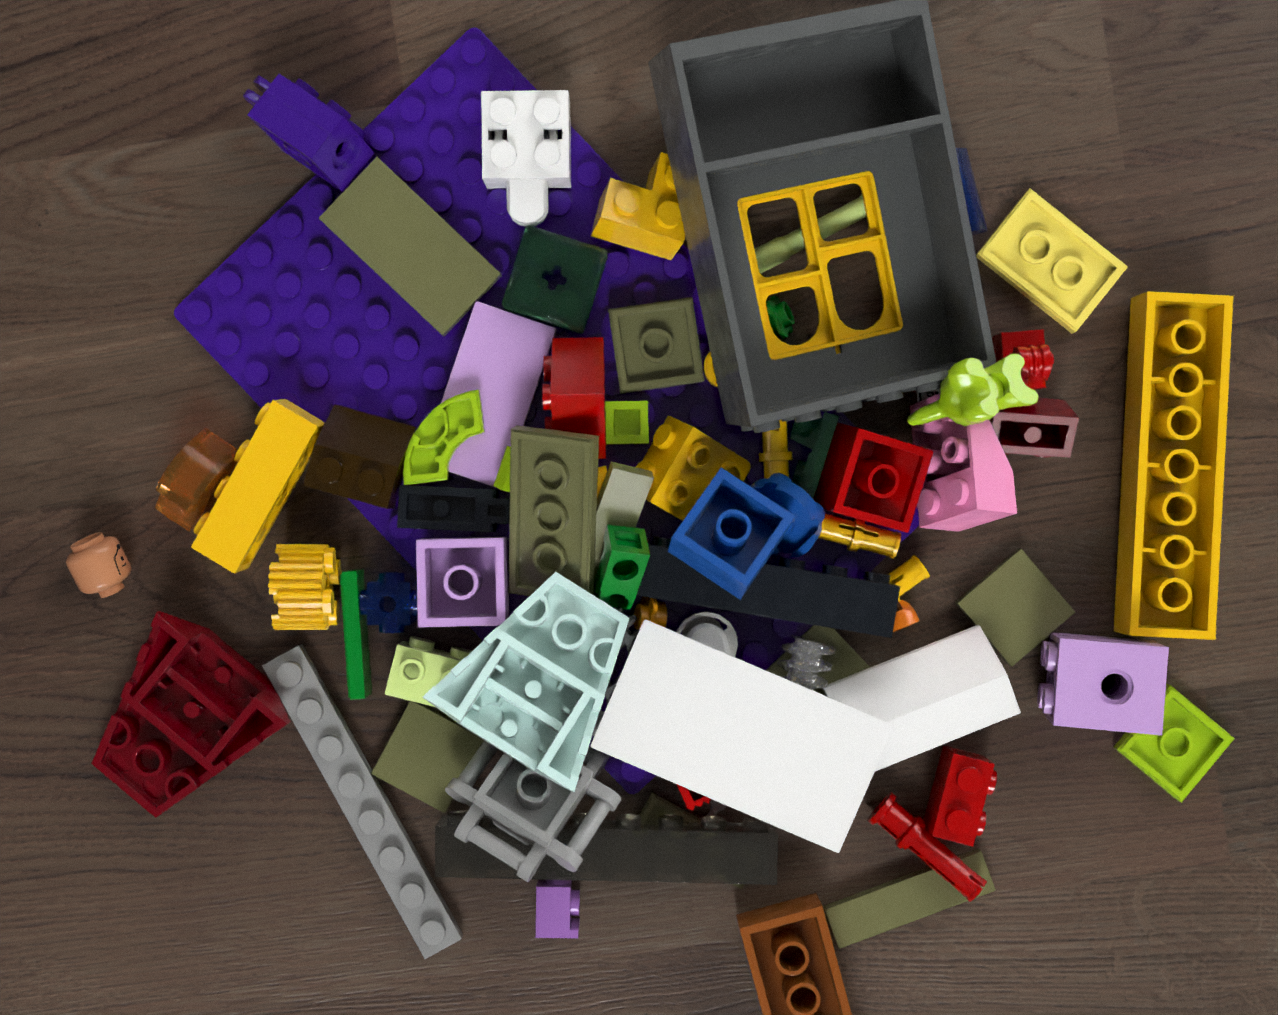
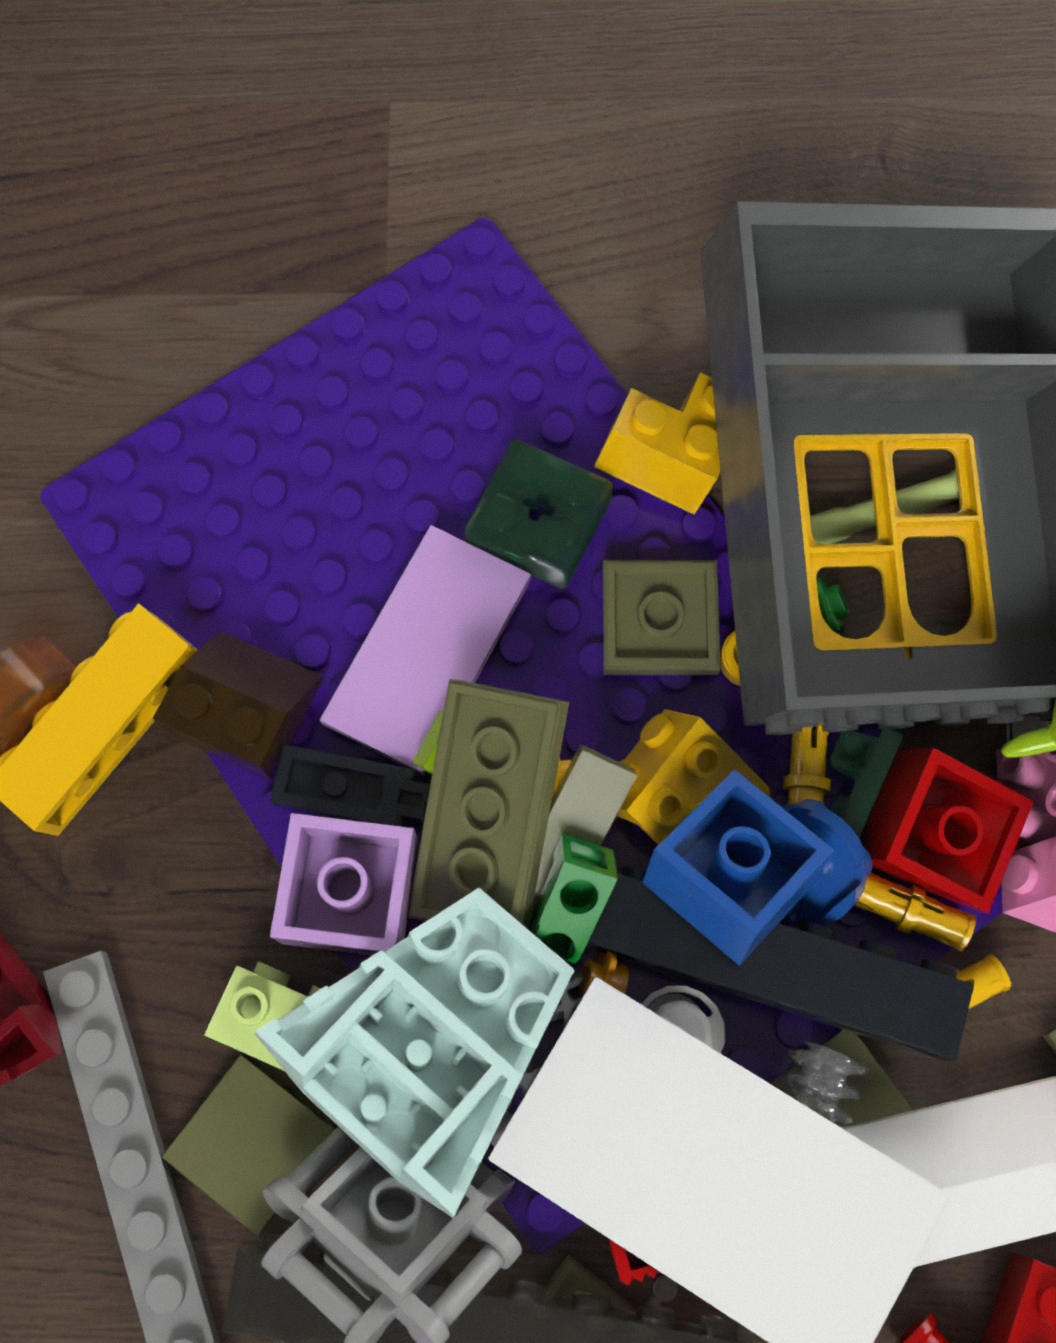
camera: 10 degrees right, 15 degrees down
(304, 587) = (125, 865): yellow brick -> none
(310, 130) = (261, 291): dark purple brick -> none
(355, 635) = (183, 946): green tile -> none
(404, 594) = (216, 903): clear blue brick -> none
(410, 246) = (359, 451): olive tile -> none
(440, 436) = (353, 687): lime tile -> none
(524, 148) = (528, 348): white brick -> none
(576, 388) = (547, 645): red brick -> none
(626, 422) = (607, 708): lime plate -> none
(905, 616) = (972, 1045): orange hinge -> none

